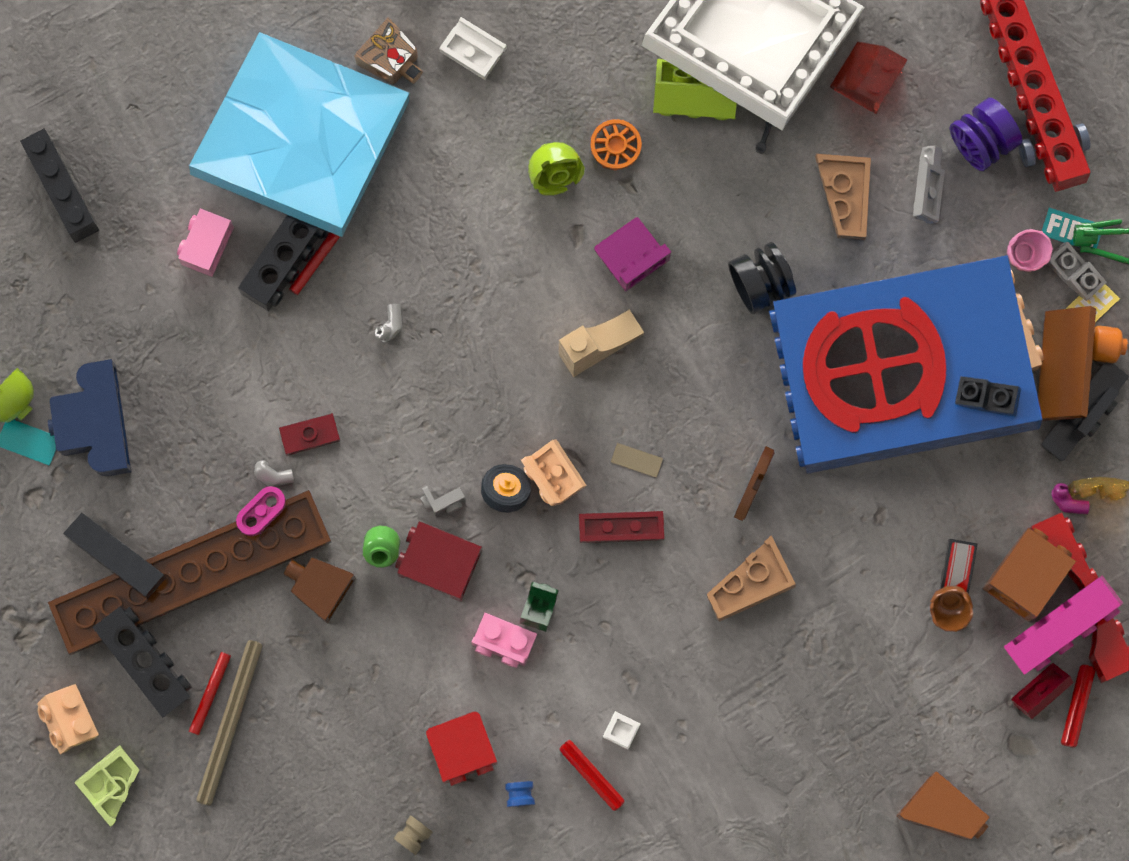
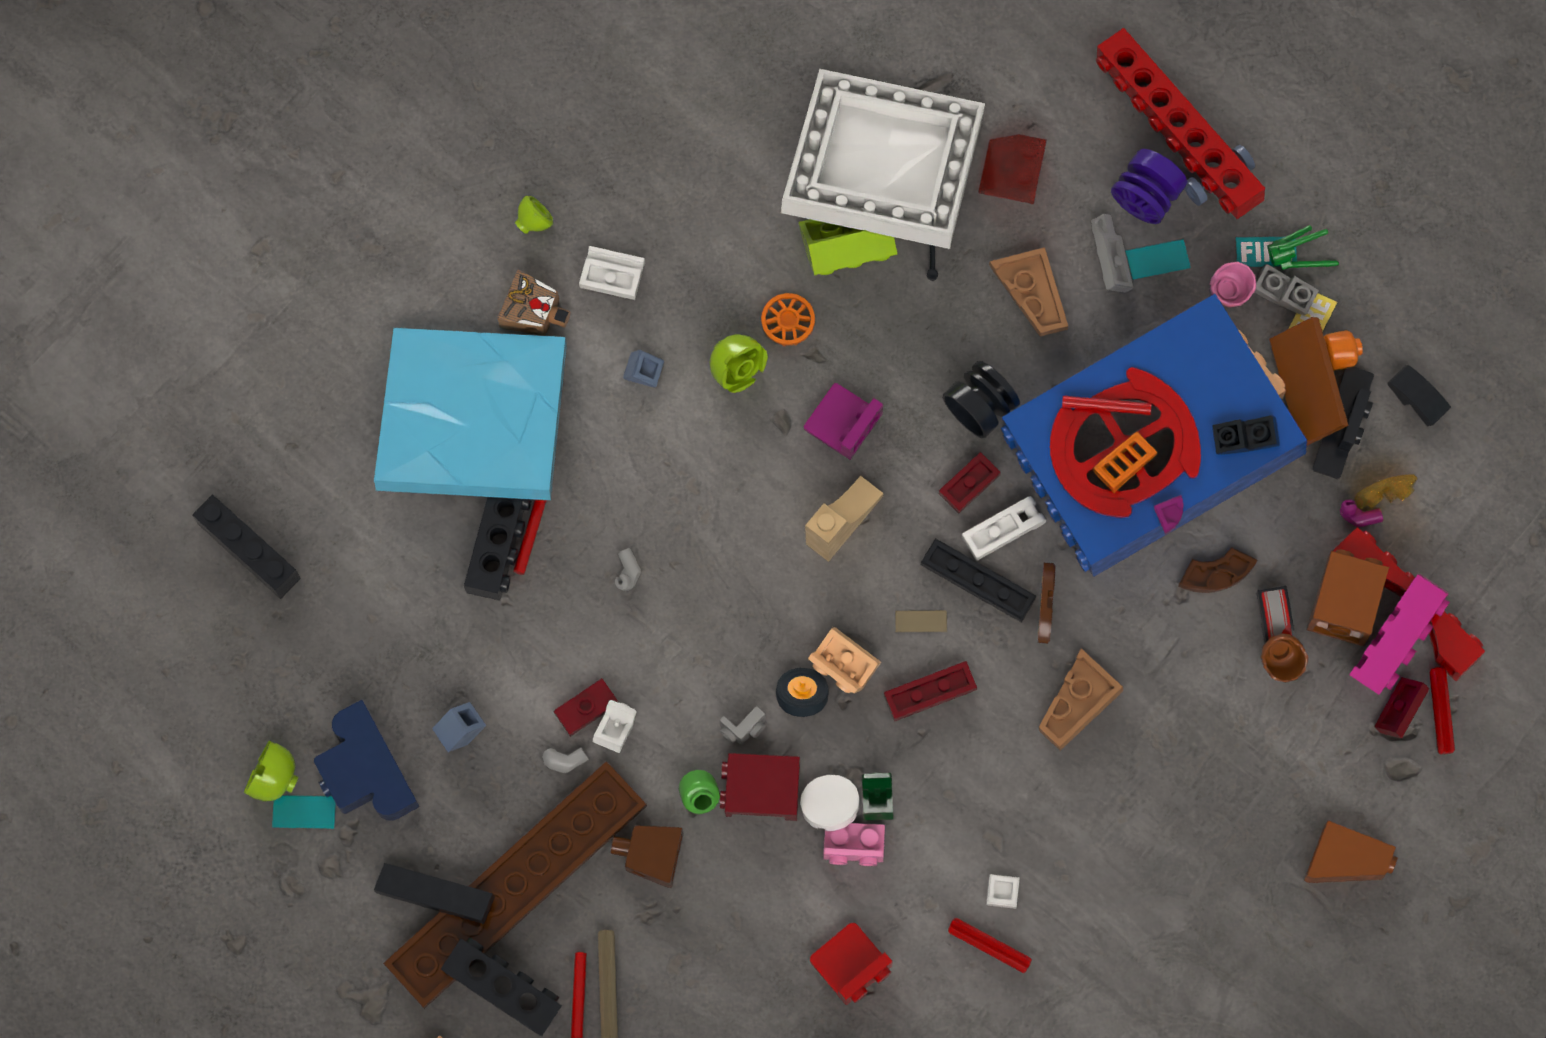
camera: 15 degrees left, 5 degrees down
(189, 413) = (453, 727): none -> sand blue brick
(205, 242) = (414, 552): bright pink brick -> none
(258, 509) = (565, 798): dark pink plate -> none
(328, 461) = (615, 726): none -> white bracket
(470, 145) = (643, 368): none -> sand blue slope
(495, 597) = (830, 802): none -> white tile
(520, 794) = (925, 988): blue wheel -> none
(701, 441) = (978, 580): none -> black tile
(725, 349) = (969, 482): none -> dark red plate
(740, 401) = (1003, 528): none -> white plate
(852, 399) = (1101, 468): none -> orange slope
(871, 324) = (1107, 405): none -> red bar
(893, 443) = (1169, 513): none -> magenta tile
(920, 510) = (1217, 574): none -> reddish brown tile
(970, 203) = (1158, 259): none -> teal sticker

